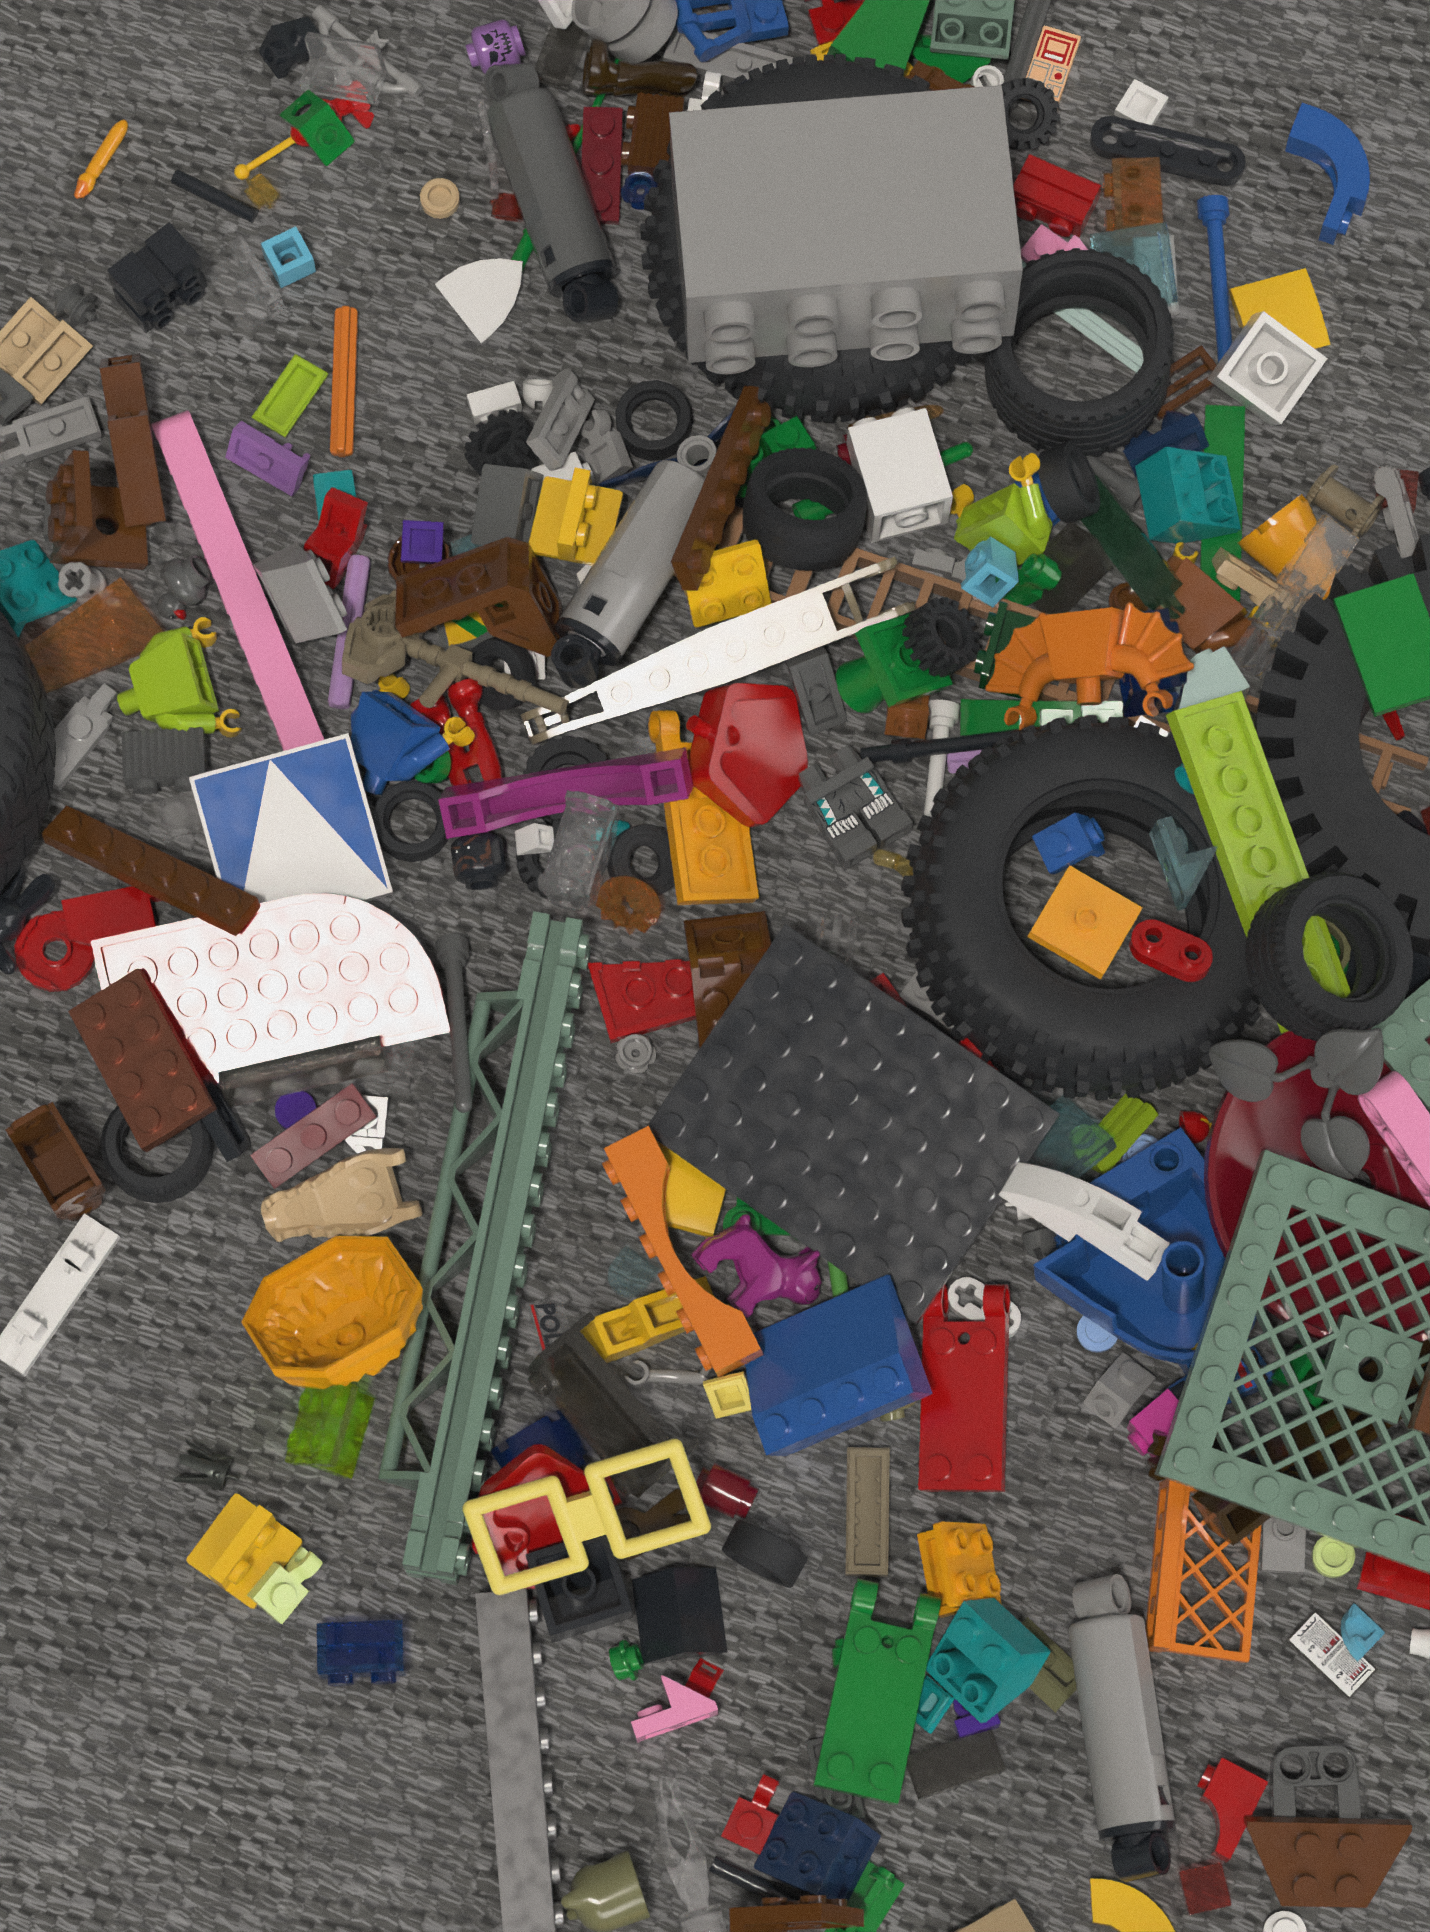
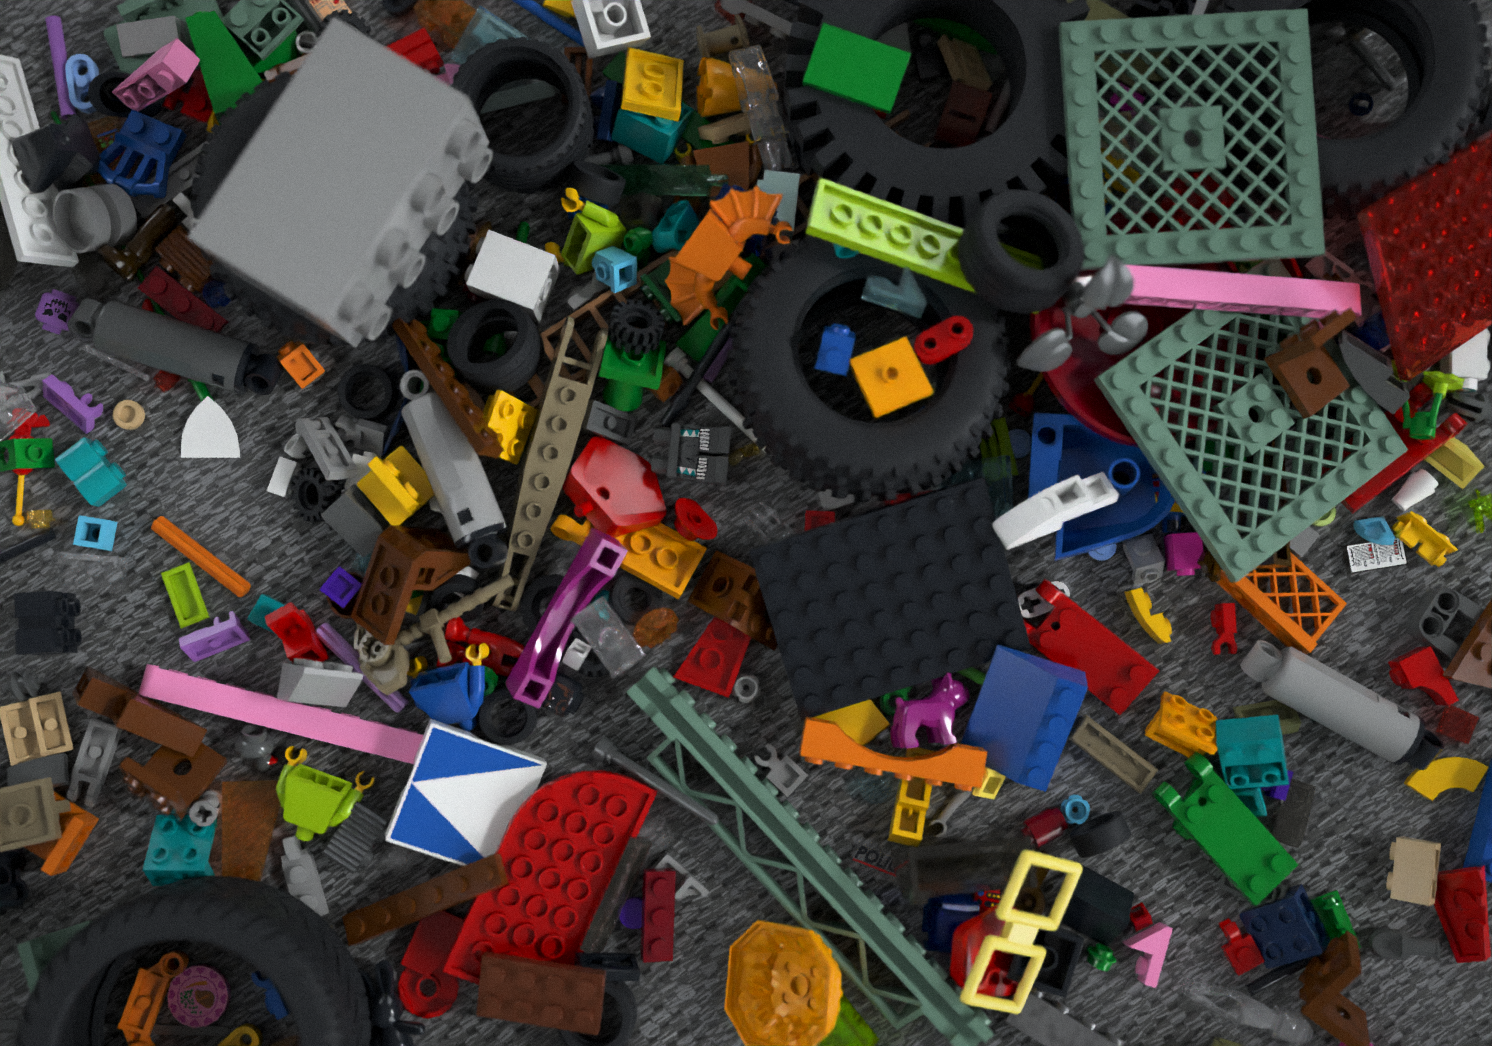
camera: 60 degrees left, 10 degrees up
(347, 1199) = (712, 921): tan animal -> none
(351, 206) = (92, 471): none -> teal brick
(404, 140) = (62, 397): none -> medium lavender plate
(572, 1161) = (784, 773): none -> light grey plate
(630, 328) = (299, 363): none -> orange bracket
(778, 860) = (693, 521): none -> red piece
(778, 1506) = (1082, 806): none -> medium azure plate
(1053, 1449) = (1155, 624): none -> yellow slope
(1085, 596) = (675, 227): none -> teal piece
(1117, 1528) = (1224, 621): none -> red plate
(1229, 464) = (652, 84): none -> yellow tile
(1393, 1709) = (1434, 545): none -> yellow hinge

